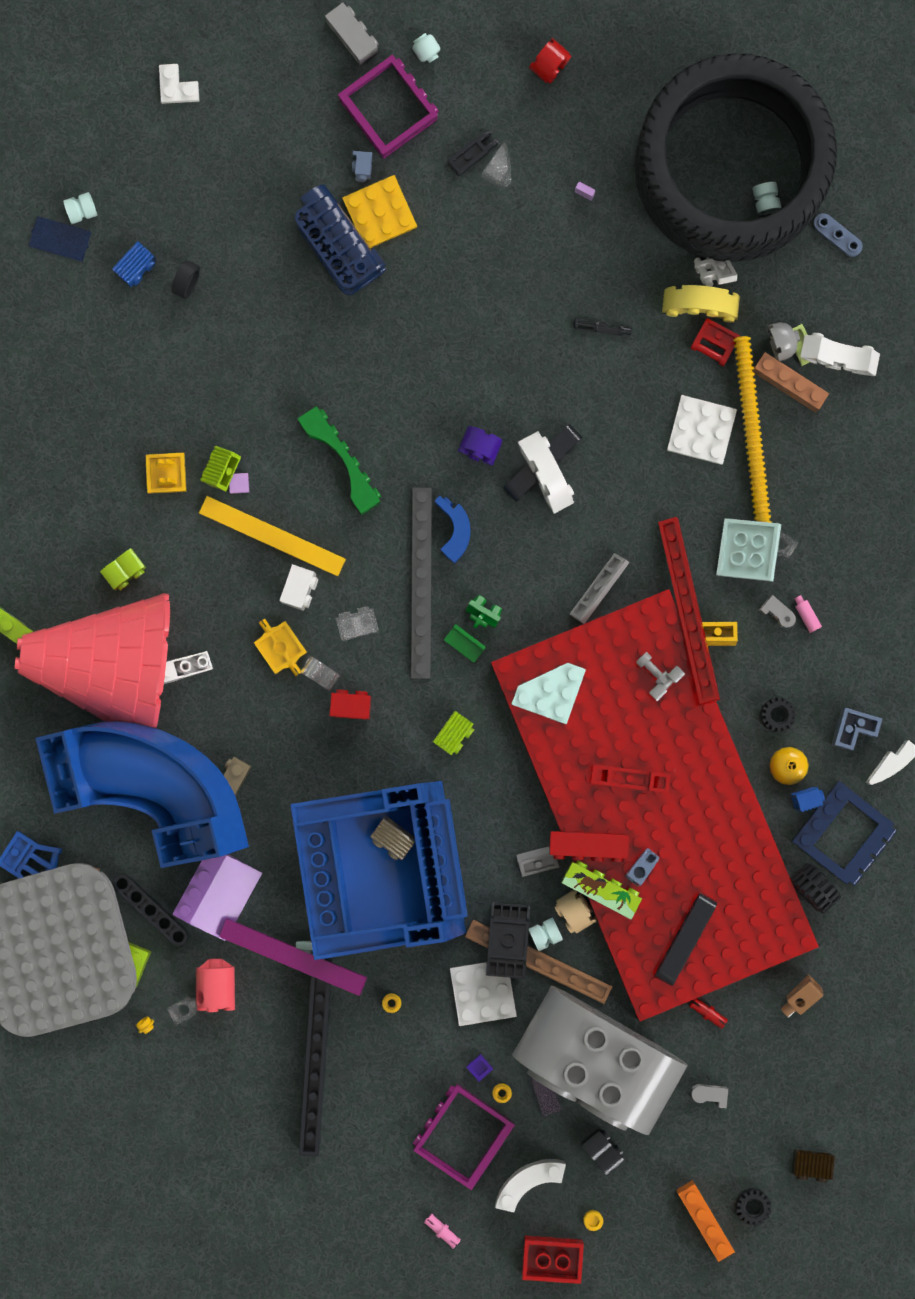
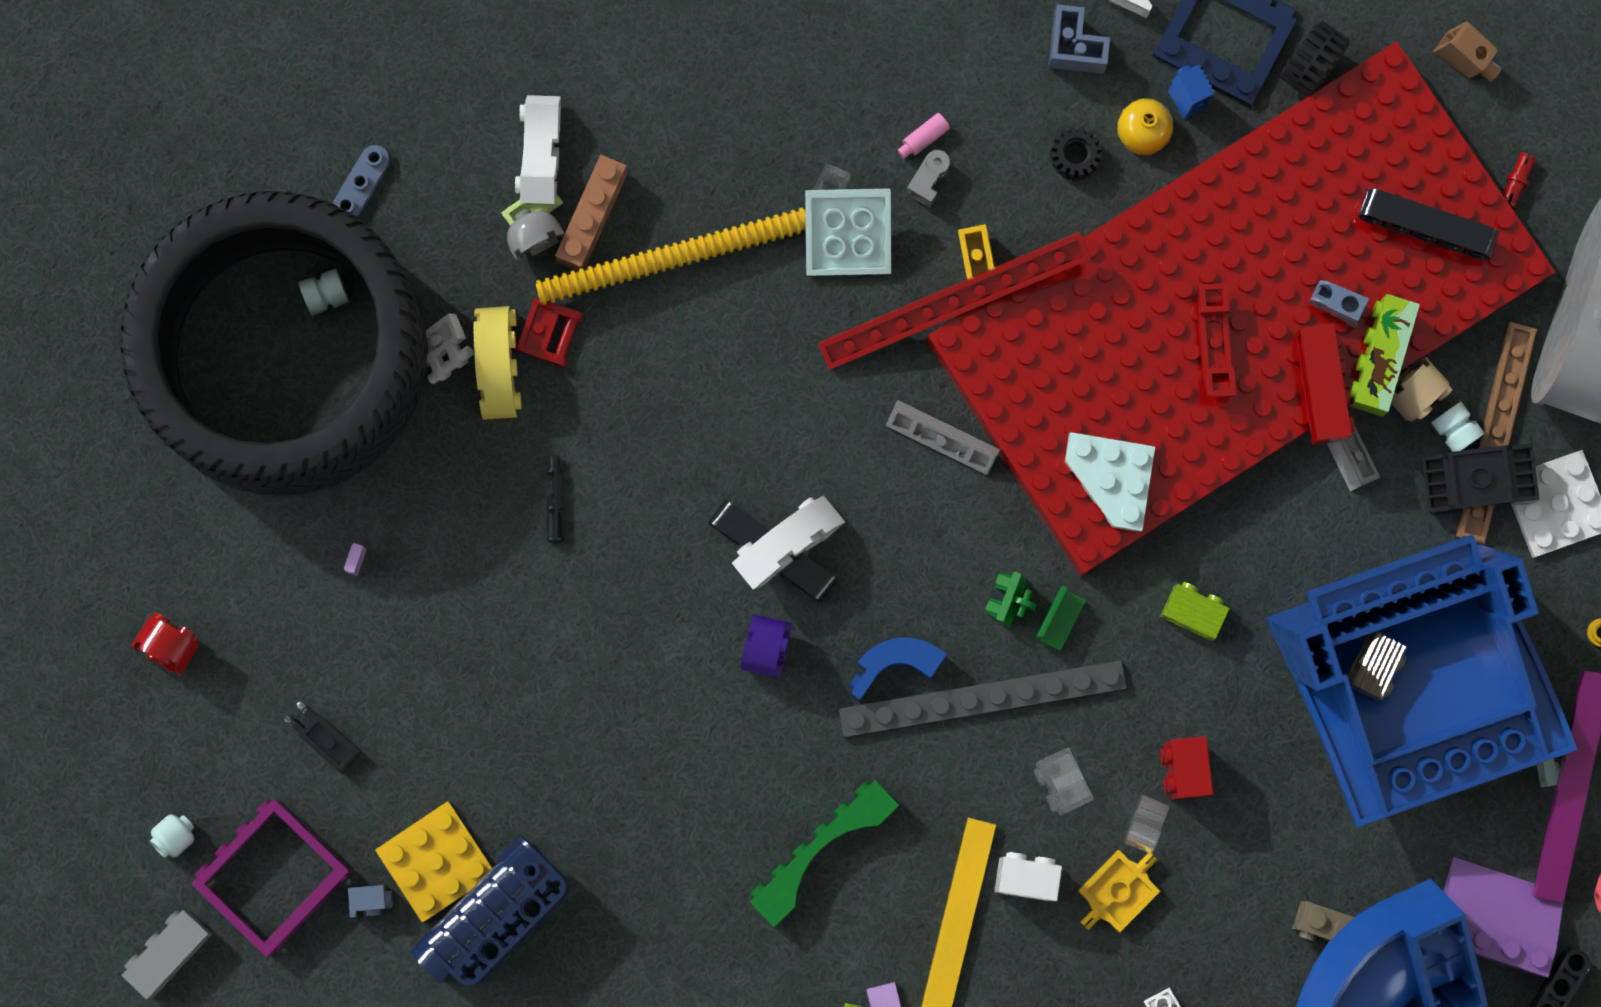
camera: 100 degrees left, 5 degrees down
(499, 169) = (341, 692): clear slope -> none
(663, 680) = (1063, 319): light grey bar -> none
(701, 430) = (682, 330): white plate -> none

